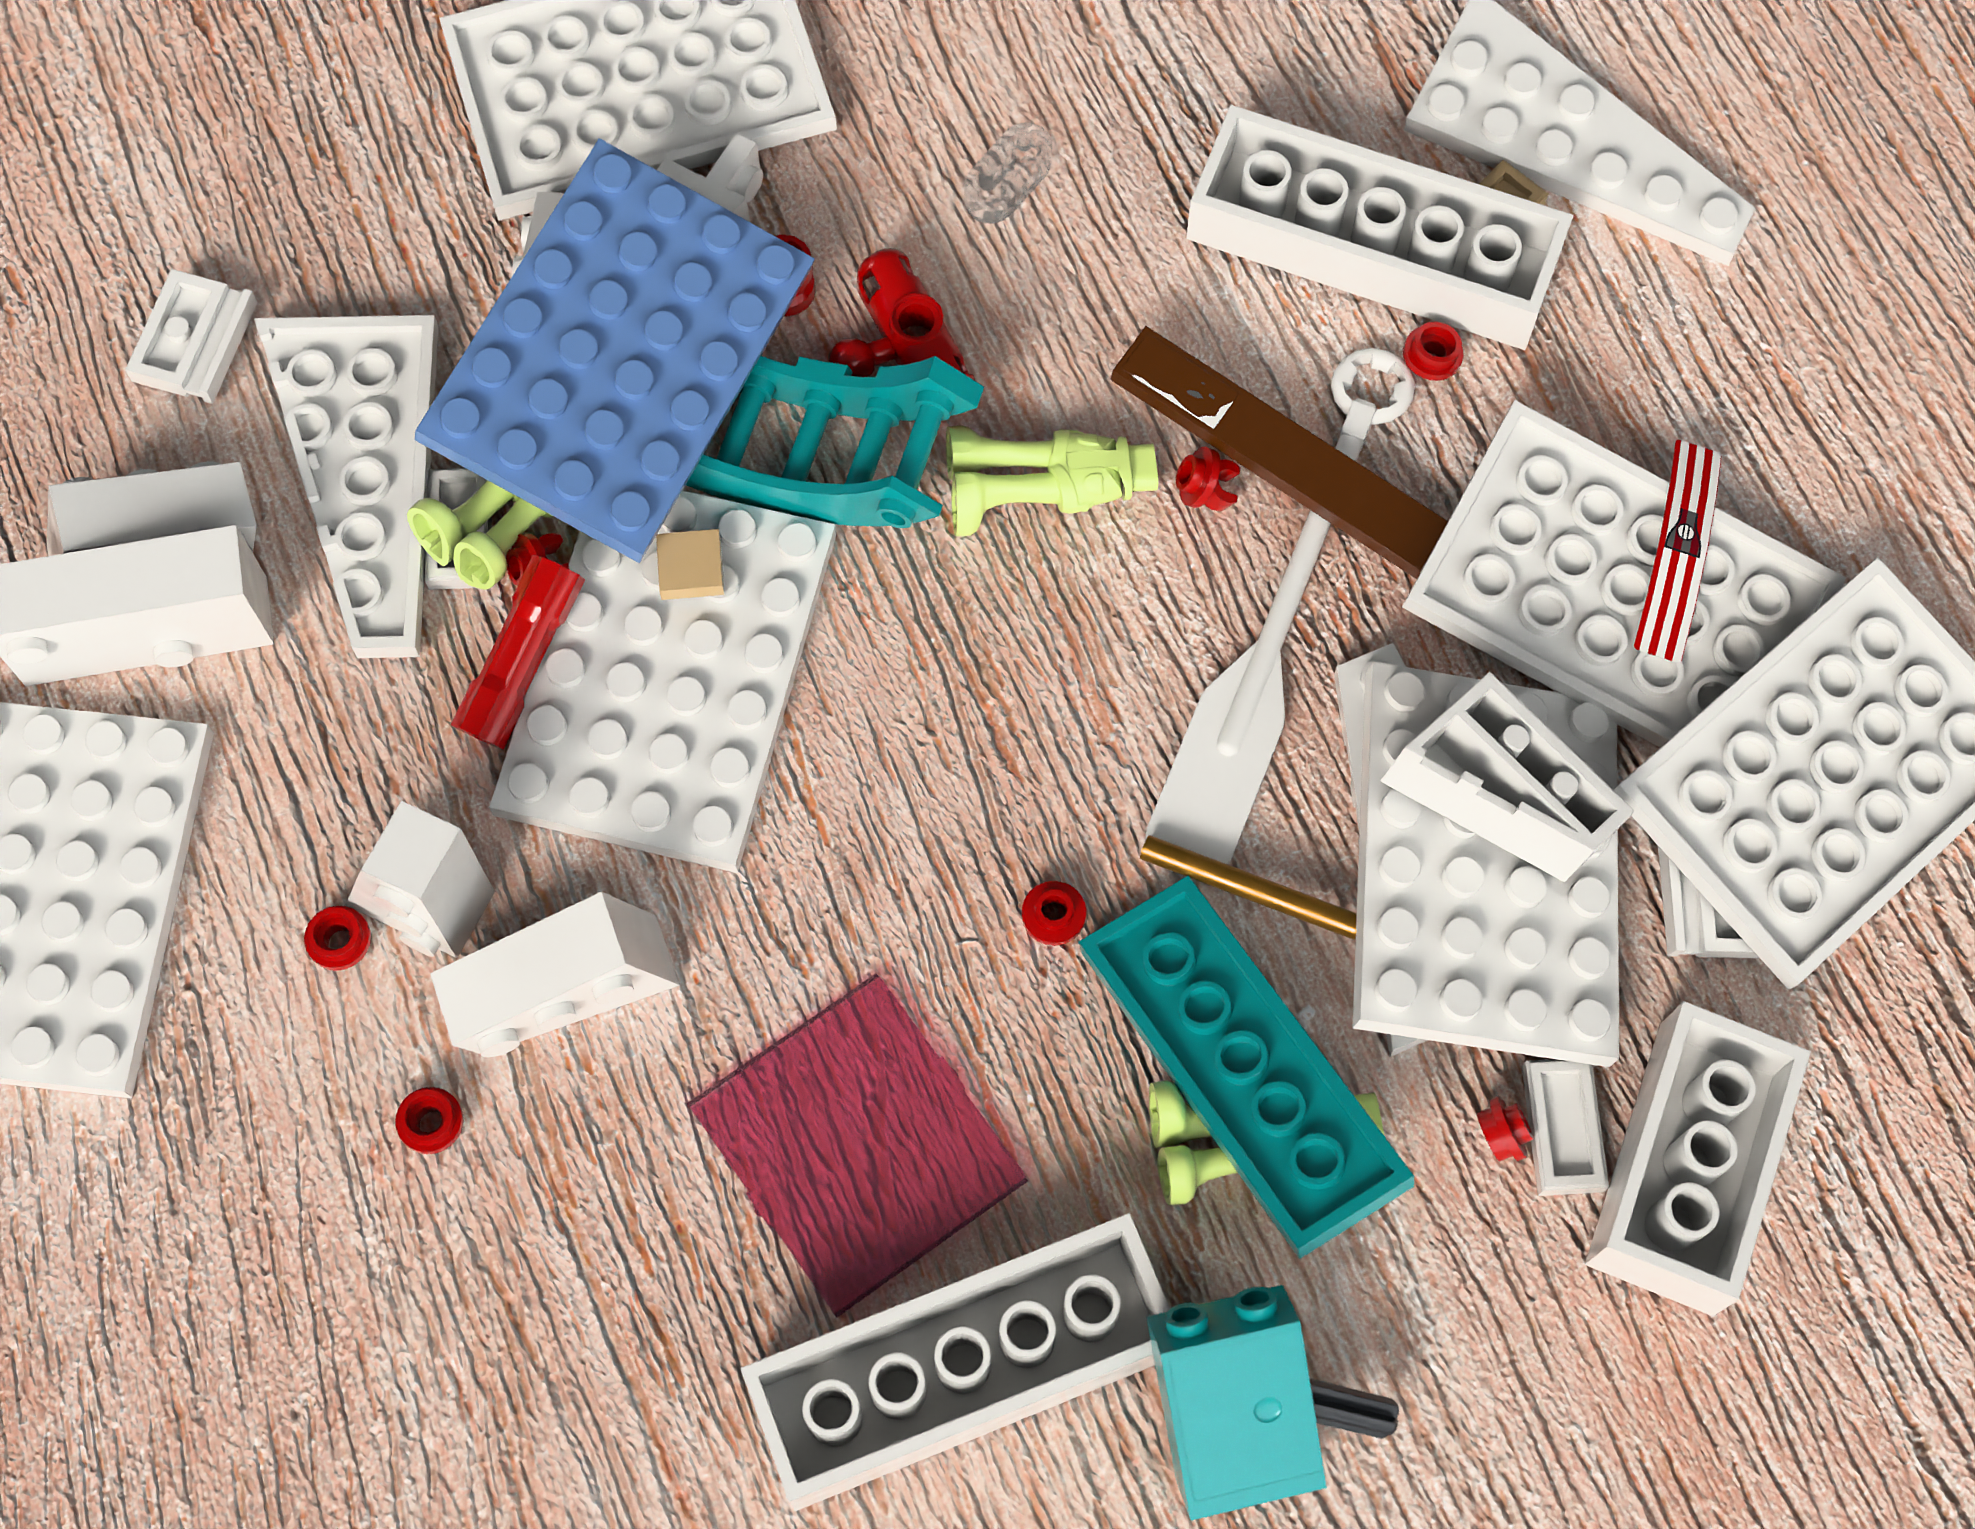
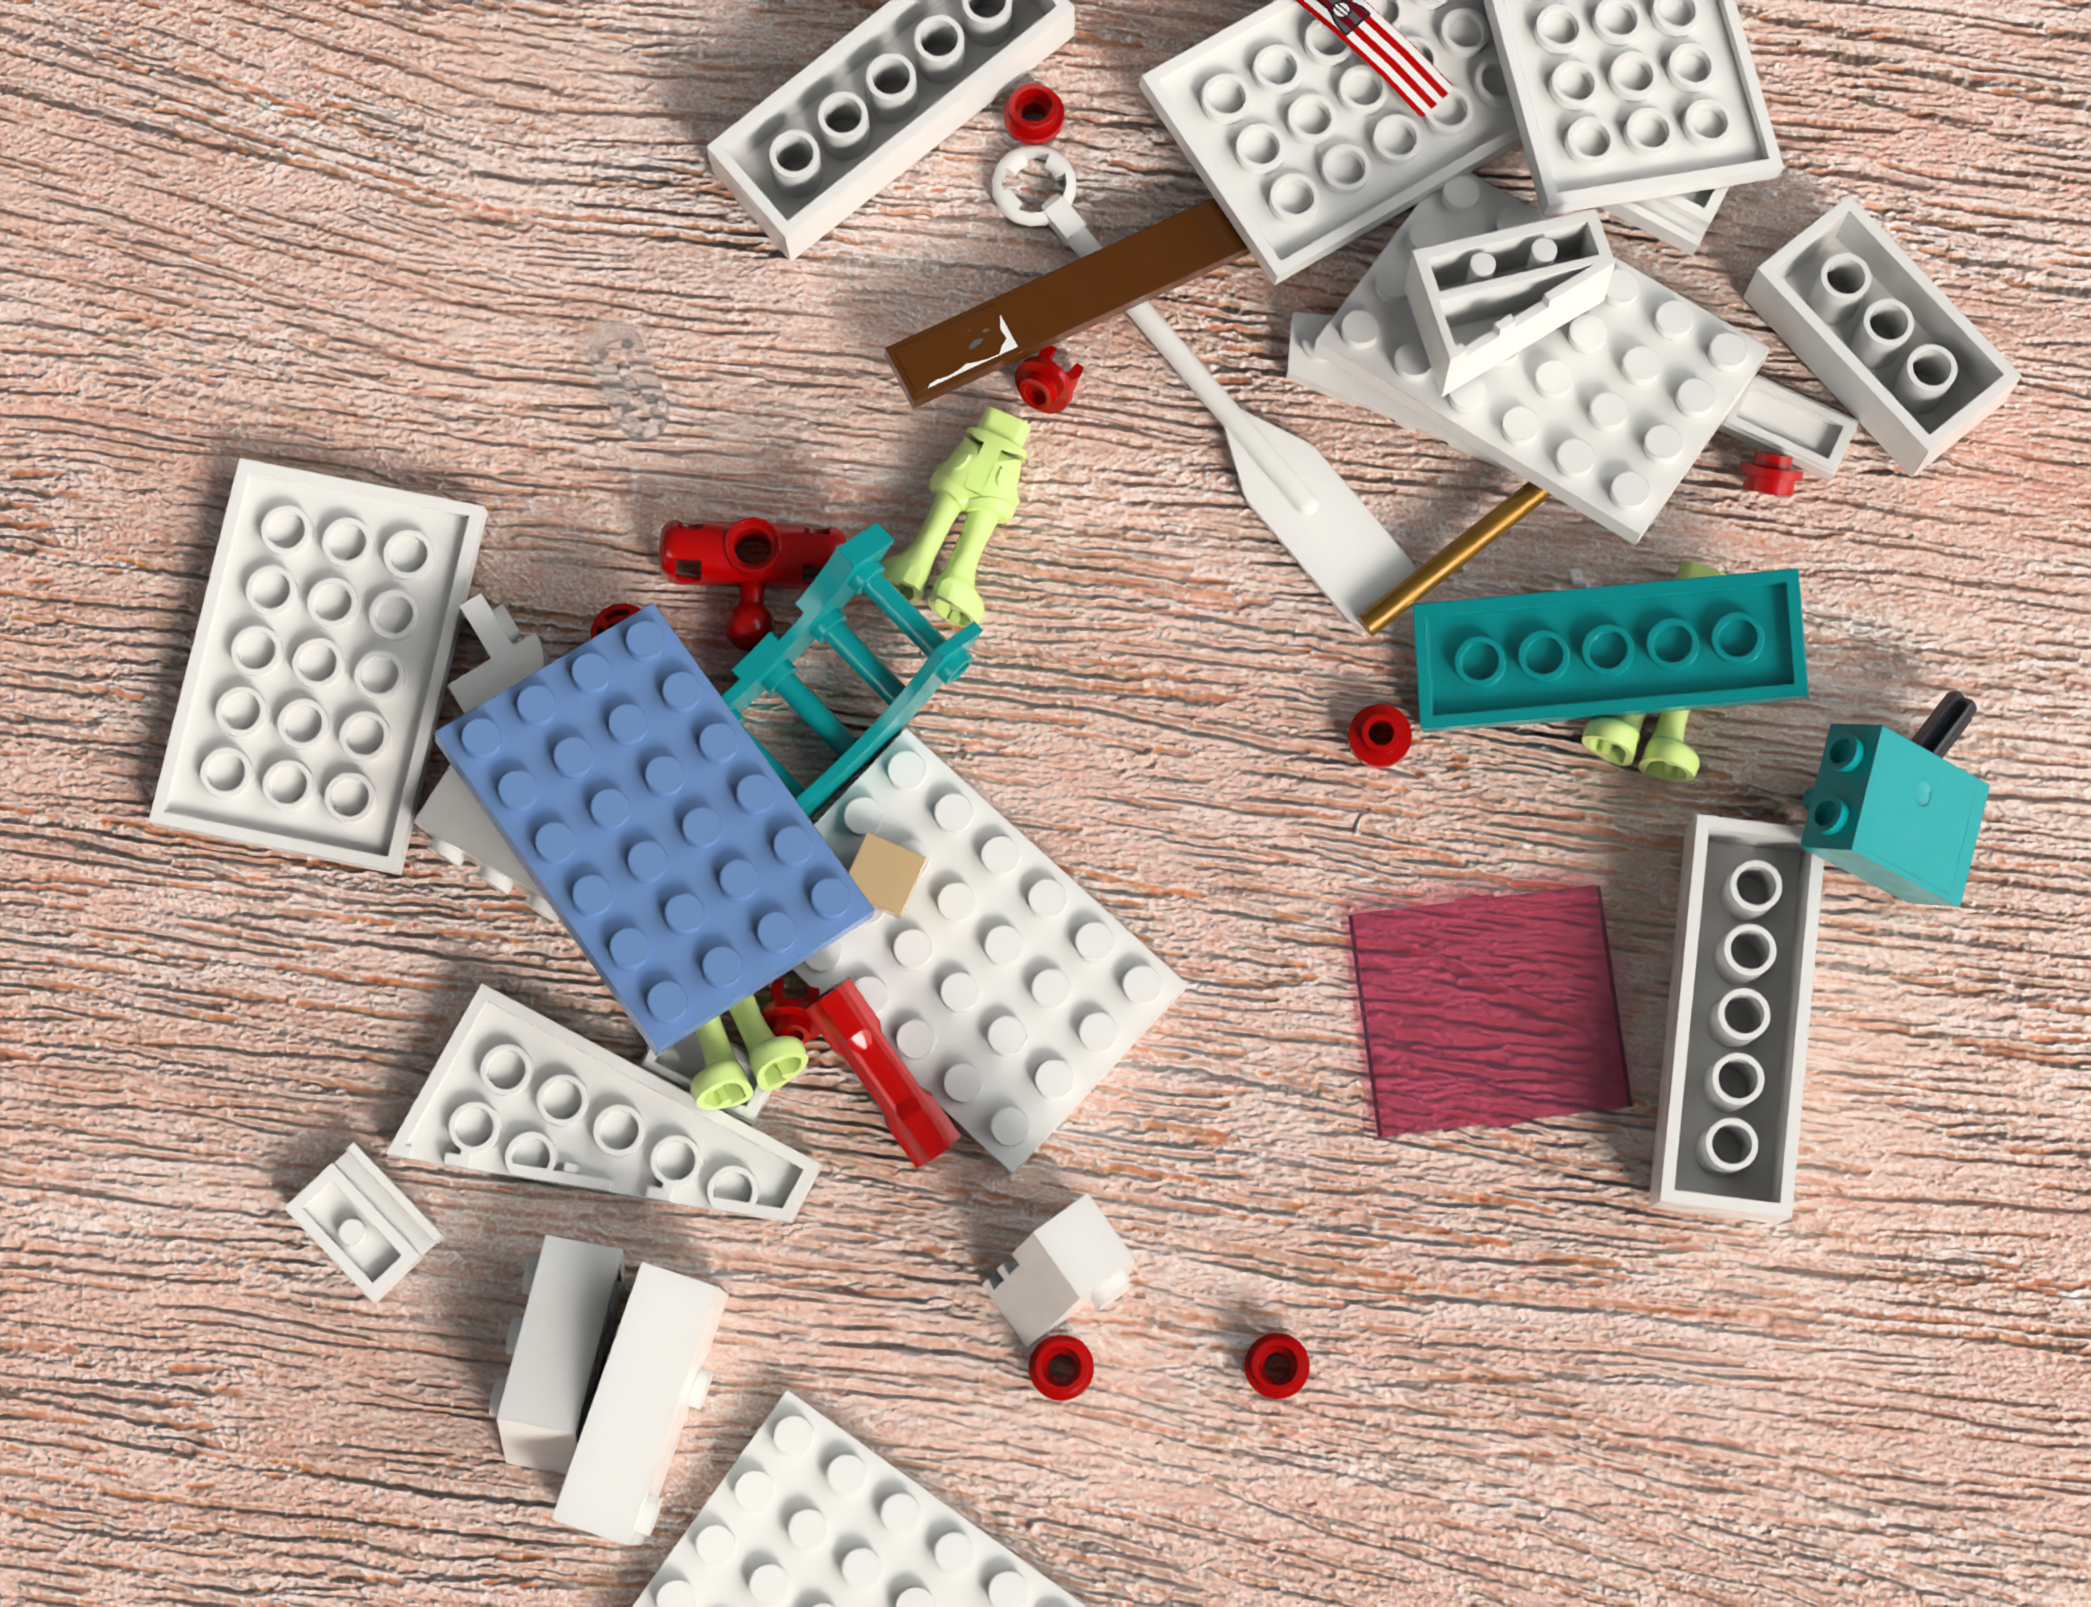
camera: 60 degrees left, 10 degrees up
(553, 975) = (1215, 1194): white wedge -> none

